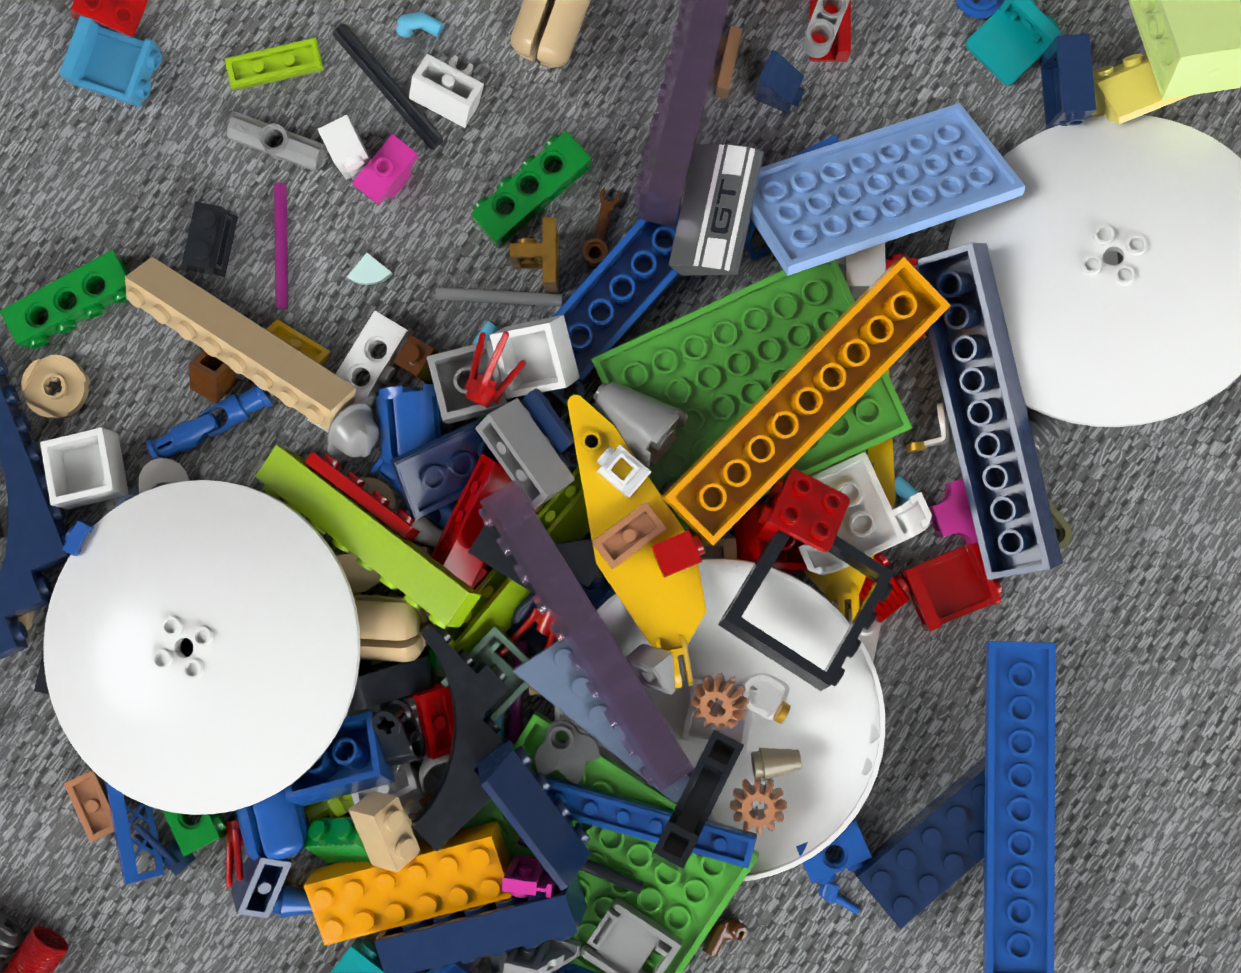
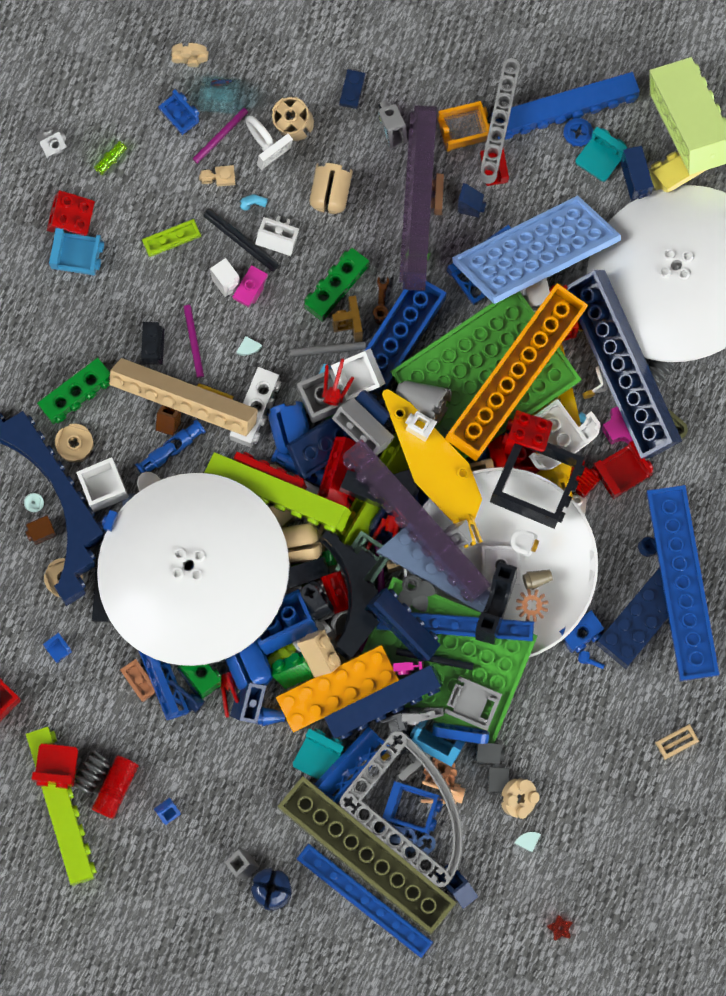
camera: 15 degrees left, 10 degrees down
(260, 134) = (169, 279): light grey piece -> none
(352, 432) = (258, 436): light grey piece -> none
(414, 359) = (287, 391): reddish brown brick -> none
(628, 535) = (430, 461): nougat plate -> none
(678, 553) = (459, 466): red brick -> none
(708, 695) = (505, 545): nougat gear -> none
(716, 210) = (447, 276): dark grey slope -> none
(722, 931) = (526, 691): reddish brown arm -> none
(968, 723) = (647, 546): none -> dark blue tile

